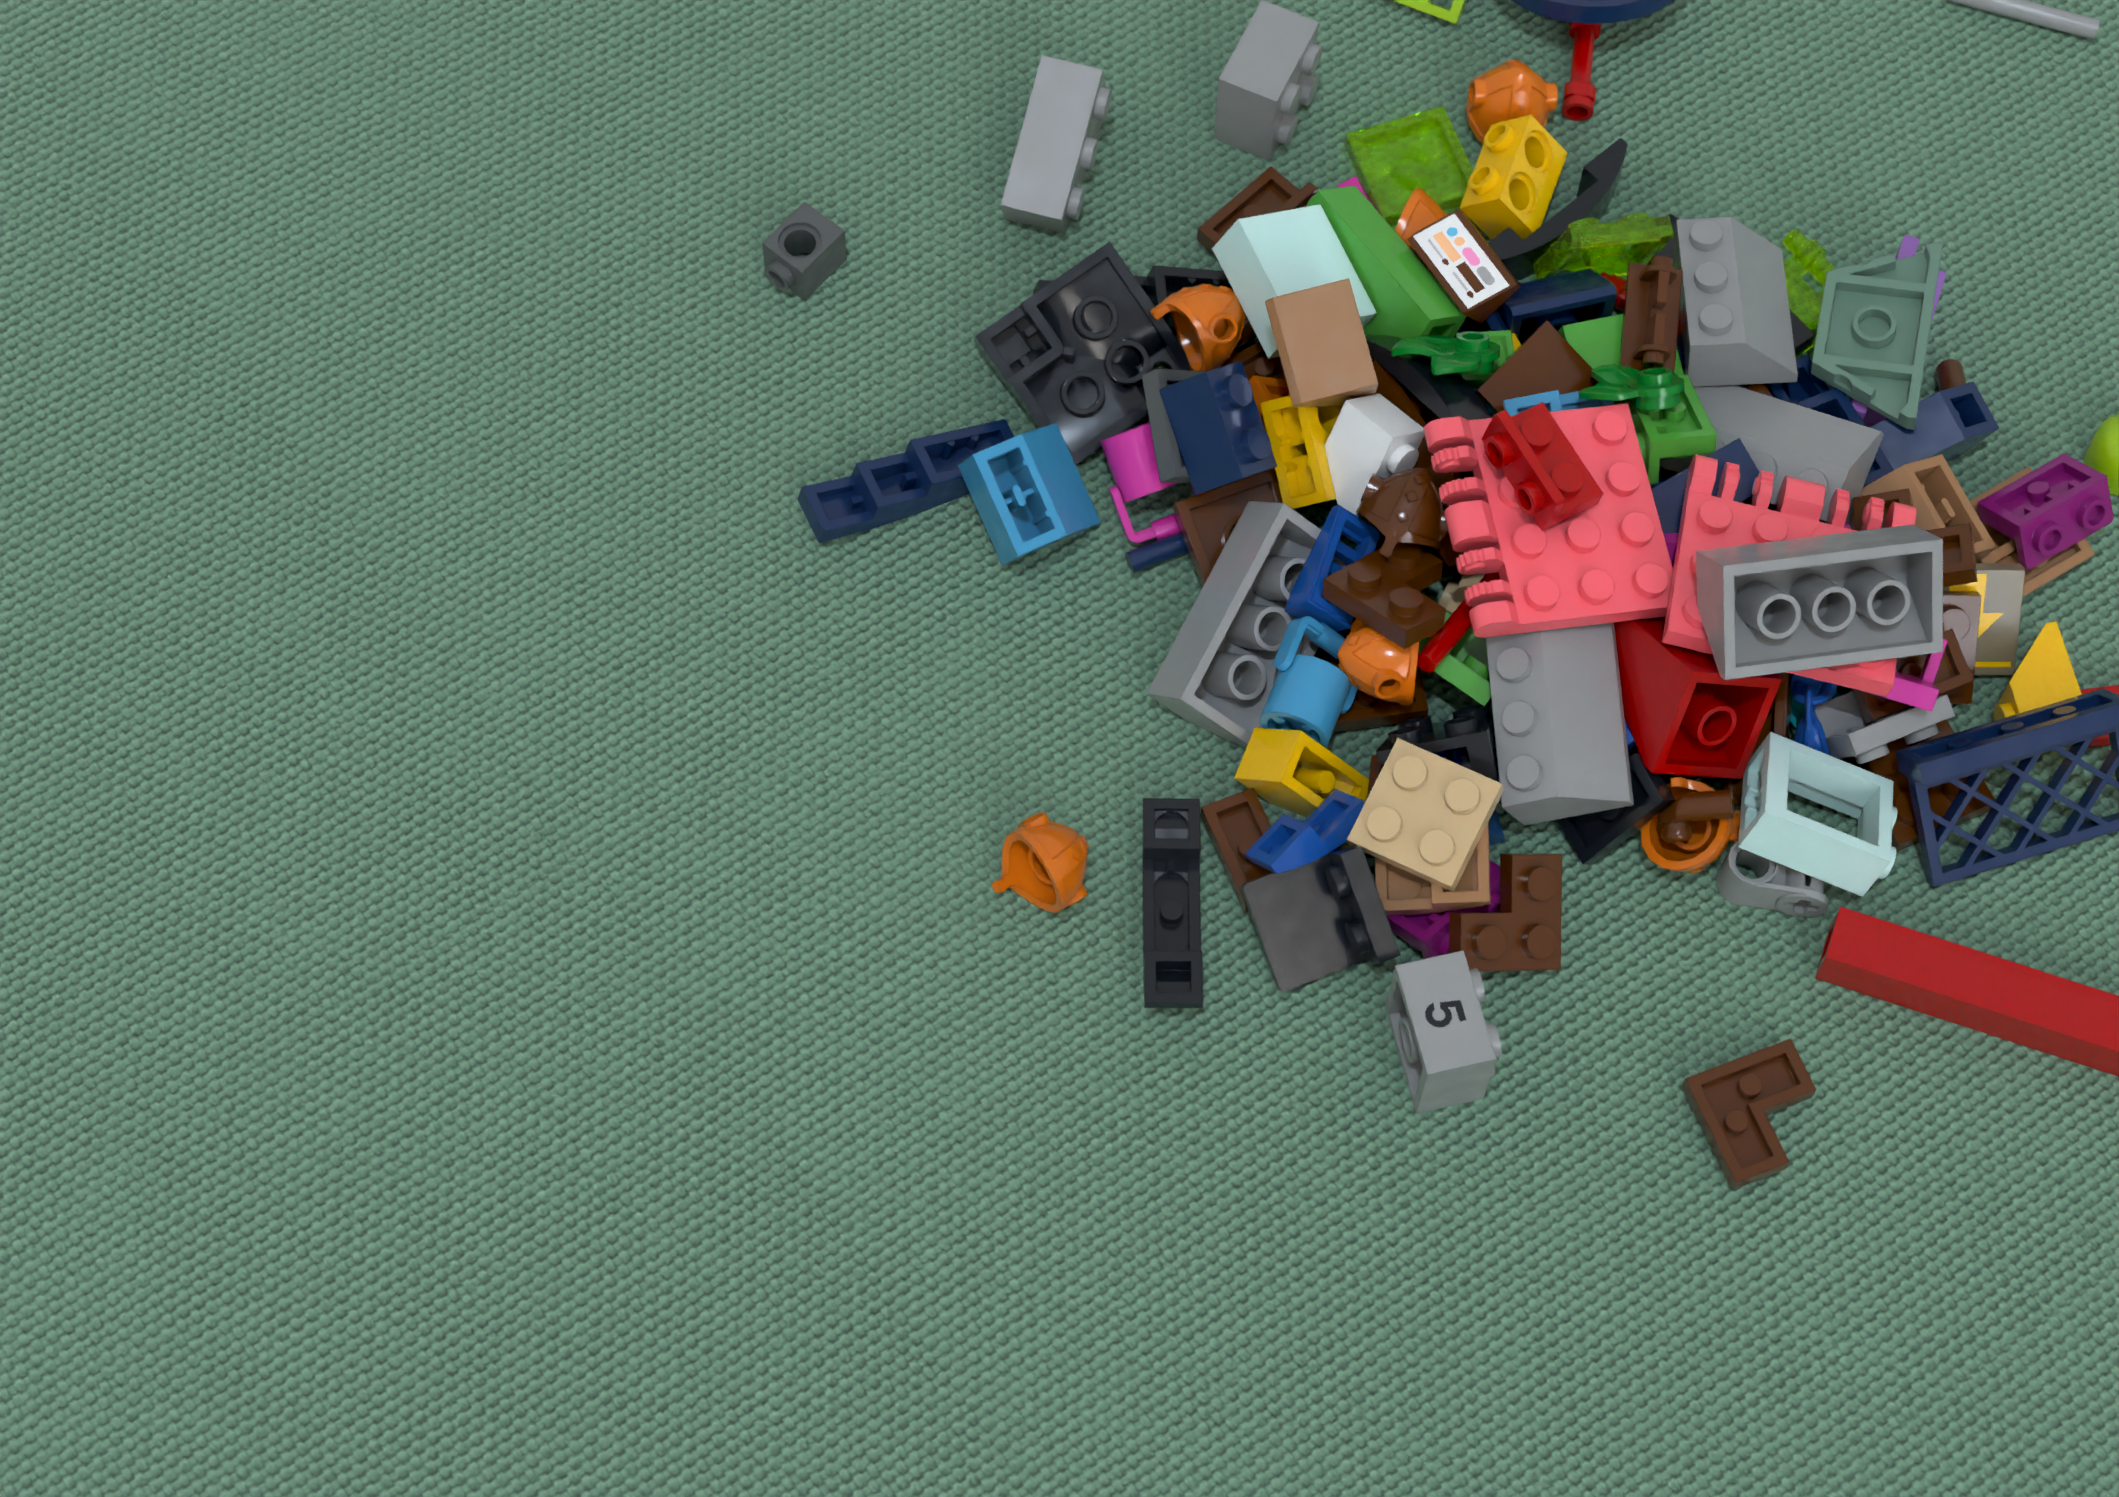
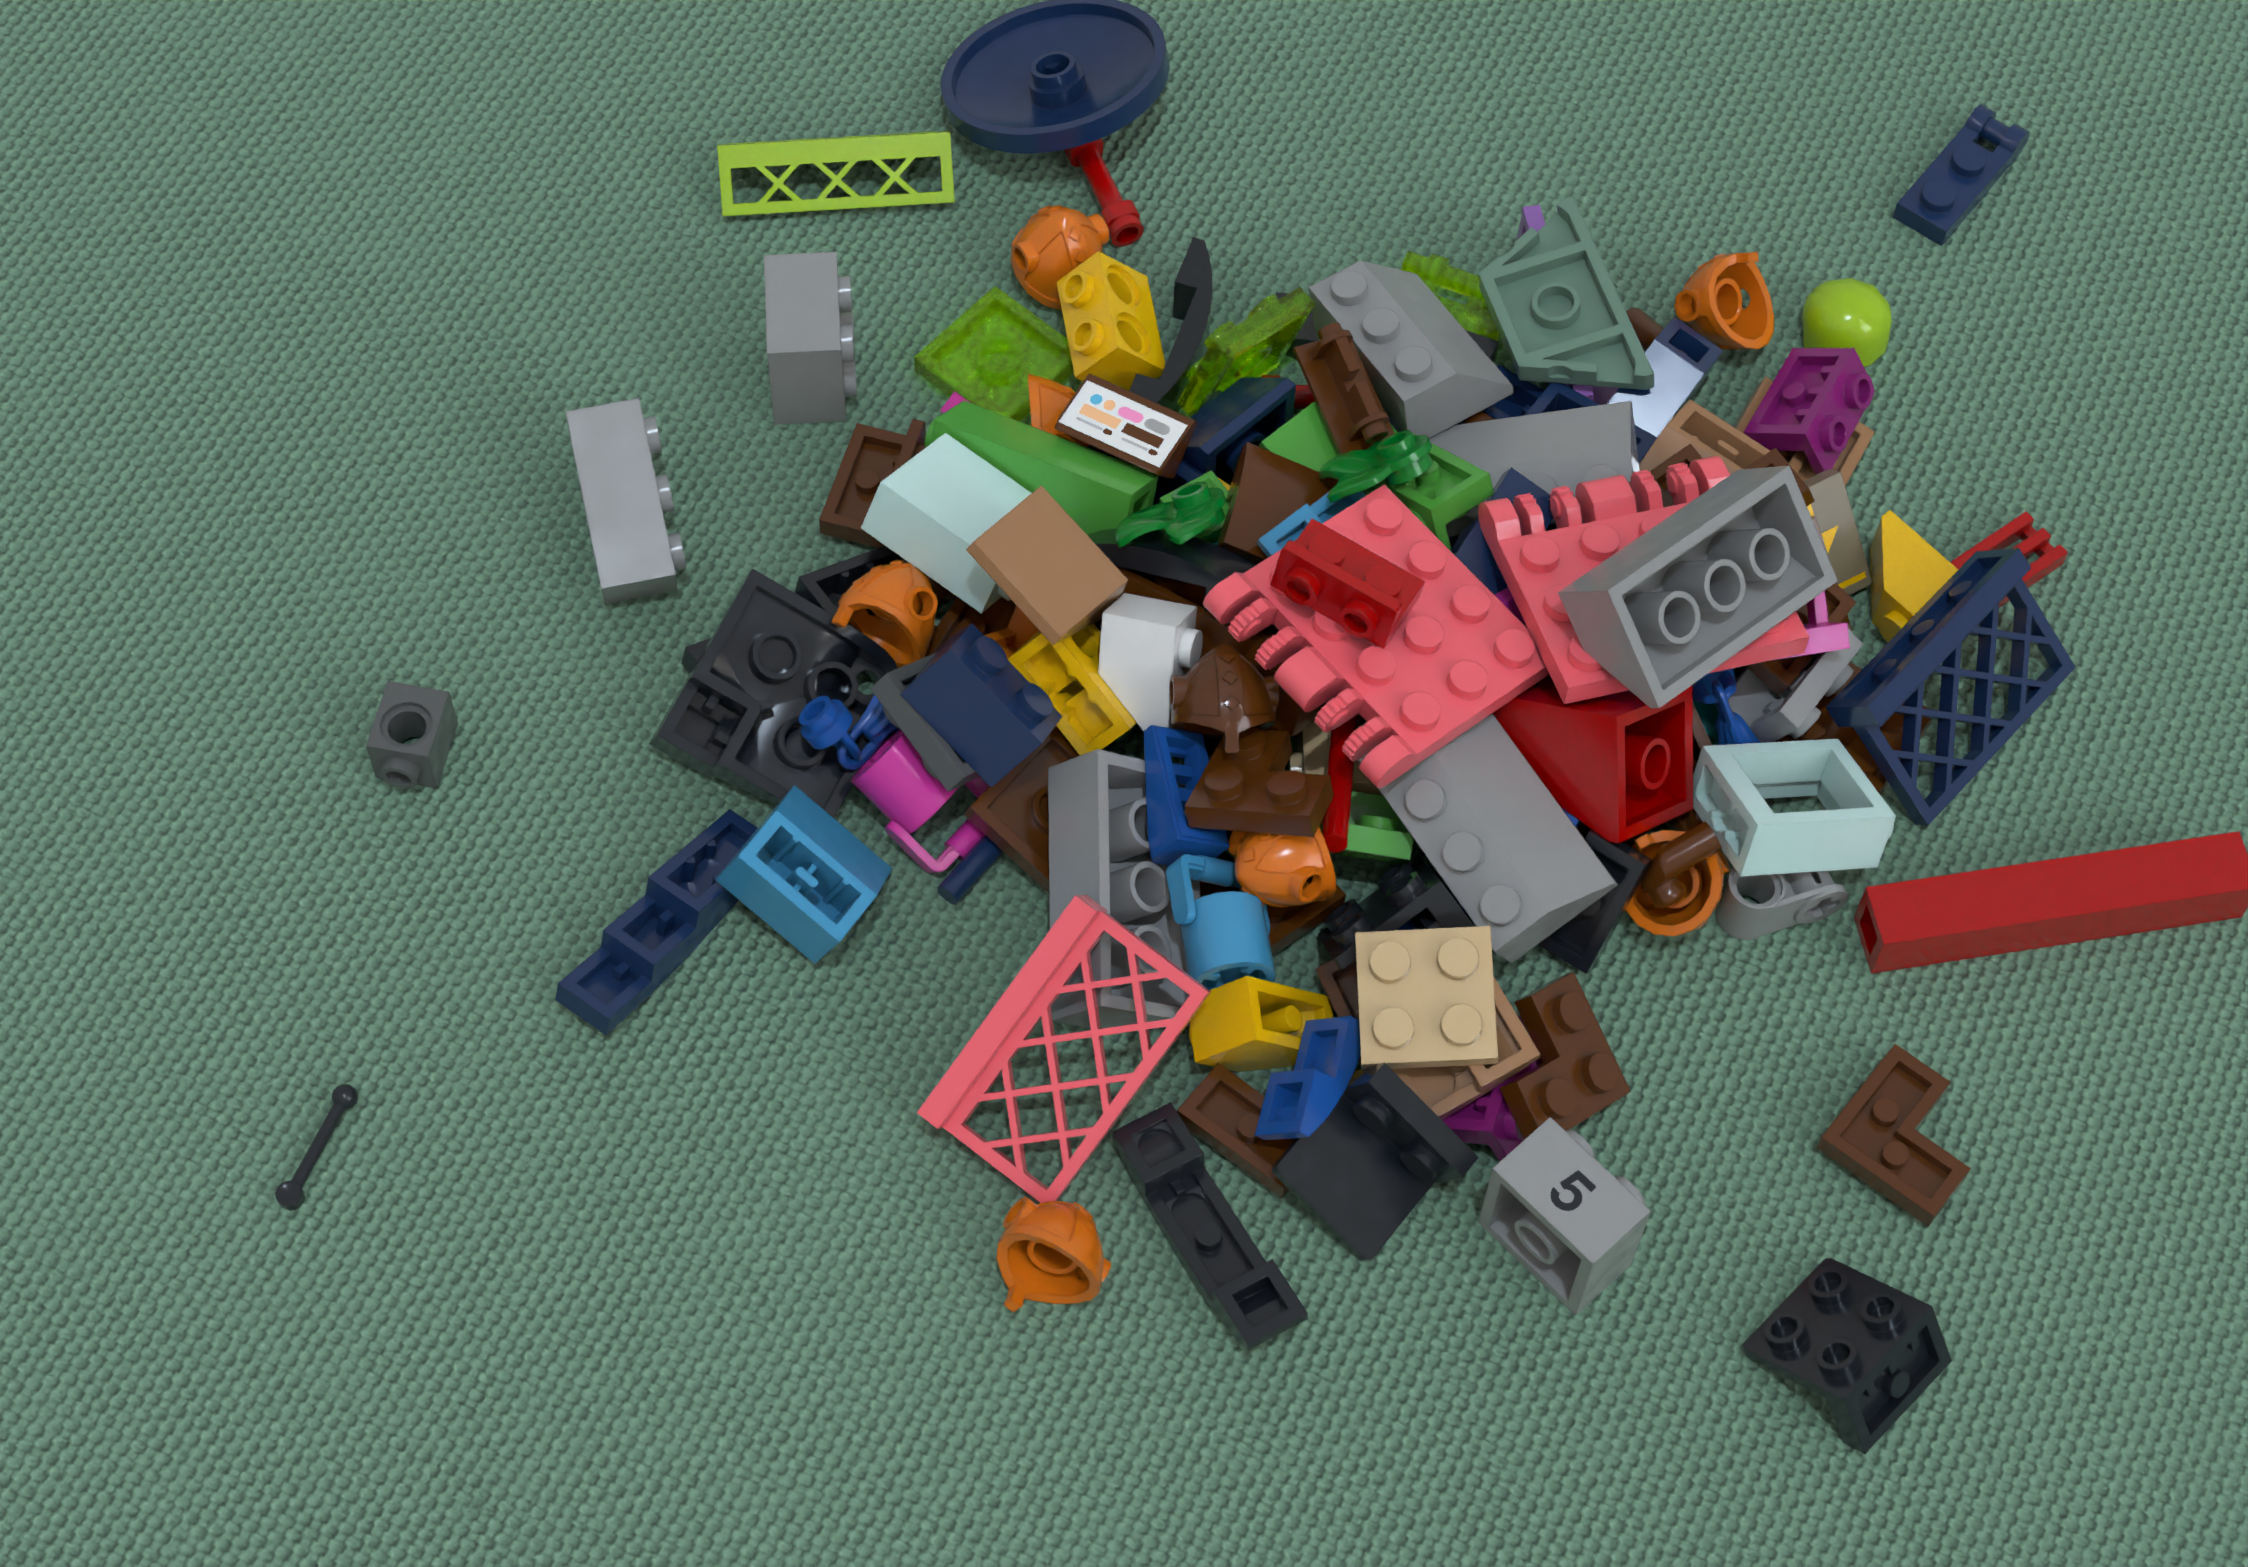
camera: 30 degrees left, 5 degrees down
(537, 547) = (290, 1193): none -> black hinge
(1103, 386) = (827, 723): none -> blue piece
(1126, 670) = (1015, 1018): none -> coral fence
(1610, 1248) = (1855, 1346): none -> black bracket
(2026, 388) = (1714, 302): none -> orange helmet

